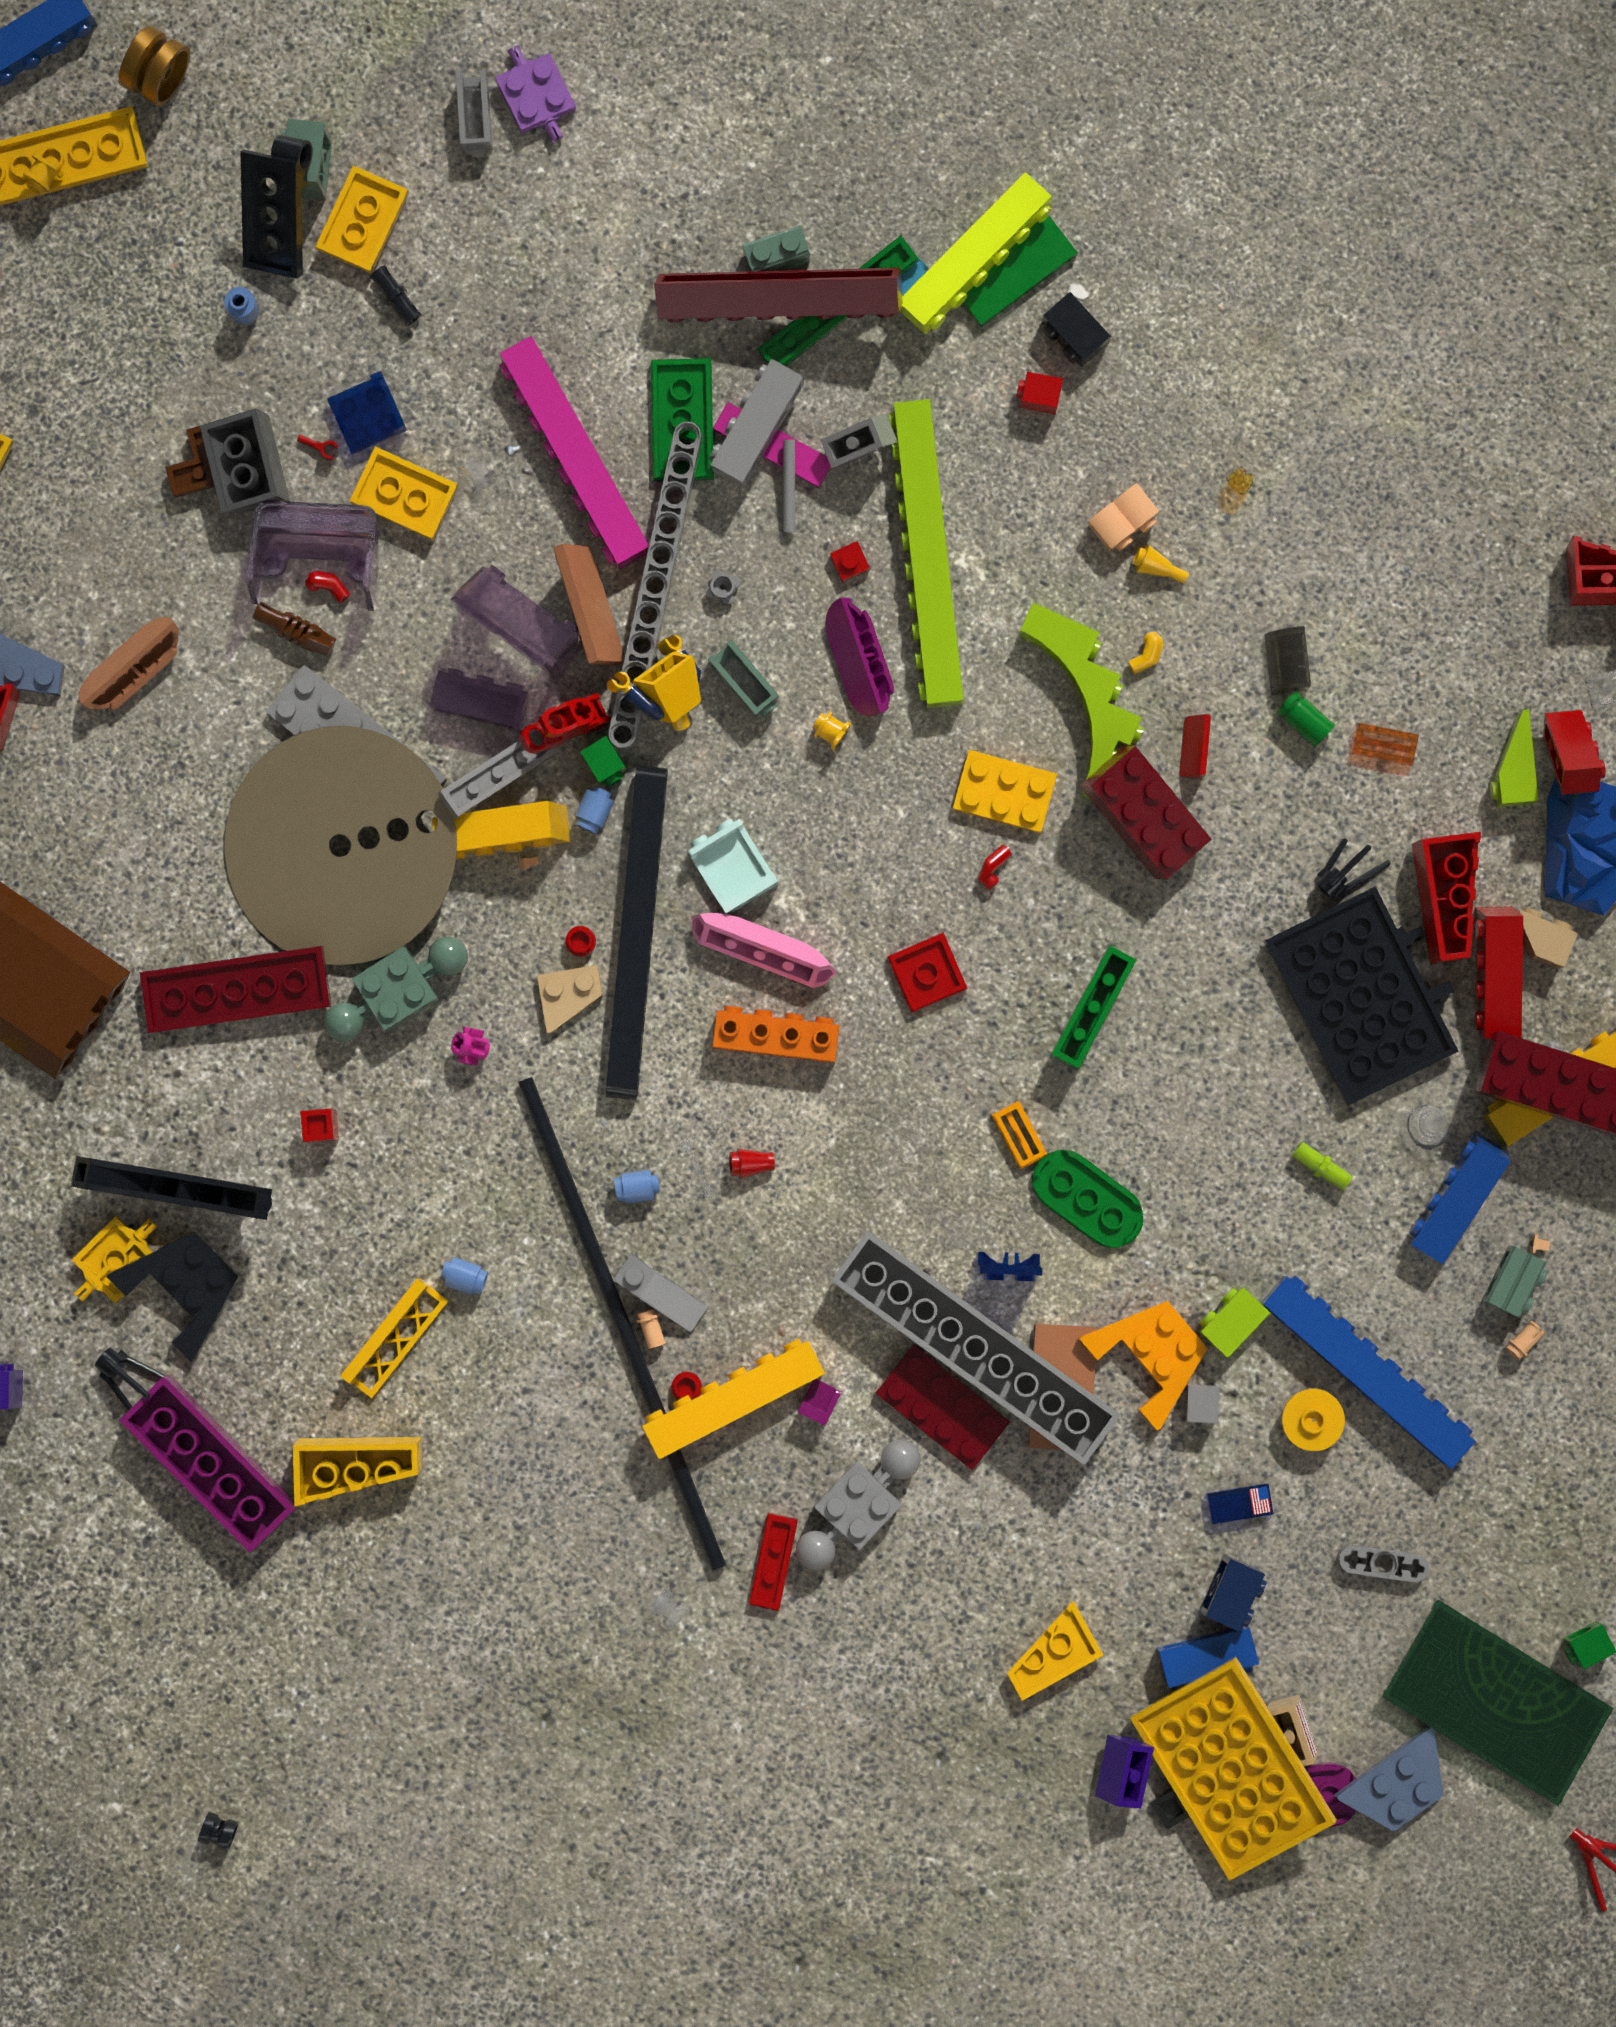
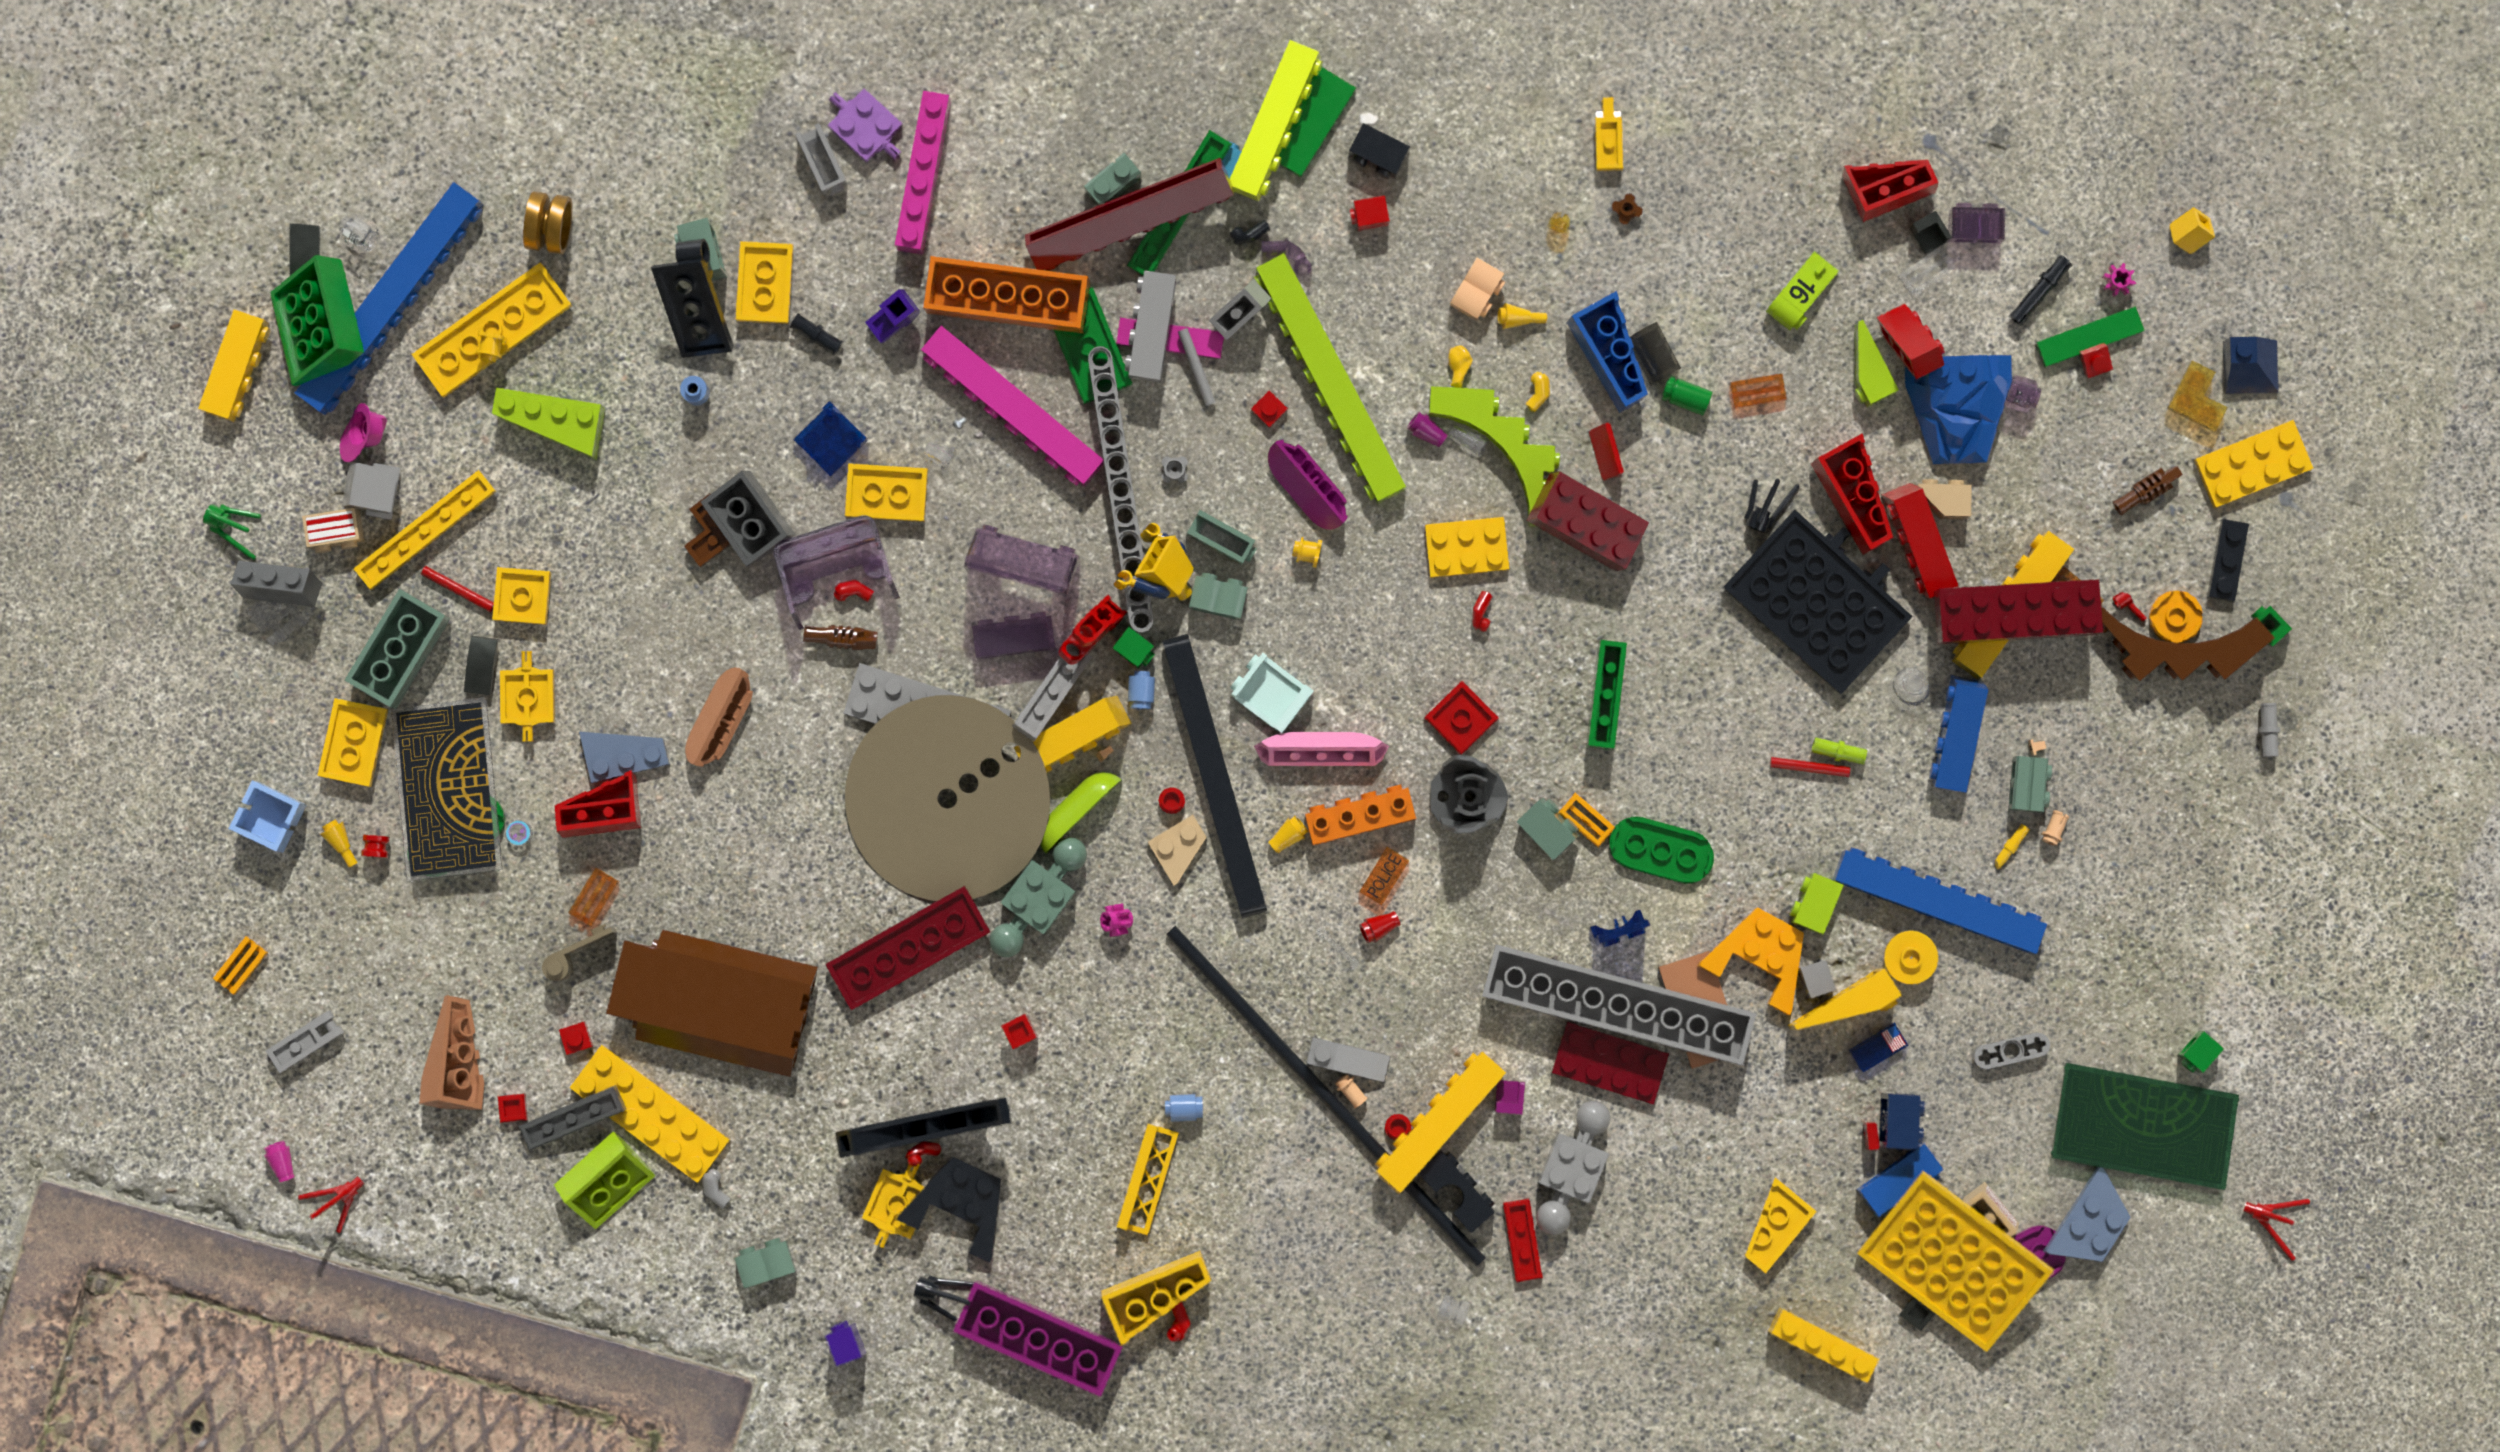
camera: 25 degrees left, 0 degrees up
(83, 280) = (554, 418): none -> lime wedge
(165, 1210) = (923, 1148): none -> red arm
(318, 446) = (800, 480): red hand -> none
(369, 1508) = (1180, 1325): none -> red arm
(476, 908) = (1077, 806): none -> lime brick
(487, 306) = (894, 314): none -> dark purple brick
(576, 166) = (923, 172): none -> dark pink brick
(589, 604) = (1073, 525): nougat tile -> none
(614, 329) = (1006, 294): none -> orange brick
(636, 1186) = (1295, 981): medium blue brick -> none
(693, 1025) = (1288, 834): none -> yellow cone
(715, 741) = (1218, 597): none -> sand green brick
(735, 1506) = (1474, 1207): none -> black arch
(777, 1110) = (1384, 876): none -> clear orange tile
(901, 1035) = (1464, 775): none -> dark grey piece
(902, 367) = (1252, 234): none -> black arm
(938, 399) = (1290, 249): none -> clear purple piece
(974, 1127) = (1549, 828): none -> sand green brick
(1010, 648) = (1426, 429): none -> magenta cone
(1051, 678) = (1468, 441): none -> clear cone
(1054, 1803) = (1823, 1345): none -> yellow brick
(1074, 590) = (1460, 362): none -> yellow animal
(1124, 1771) = (1869, 1297): dark purple brick -> none
(1194, 1596) = (1871, 1136): none -> red tile
(1241, 638) = (1607, 346): none -> blue wedge
(1246, 1442) = (1866, 995): none -> yellow slope
(1283, 1171) = (1812, 767): none -> red bar
(1314, 501) = (1626, 216): none -> reddish brown plate
(1329, 410) = (1608, 137): none -> yellow hinge
(1469, 1341) = (2011, 846): none -> yellow piece
(1473, 655) = (1802, 292): none -> lime door

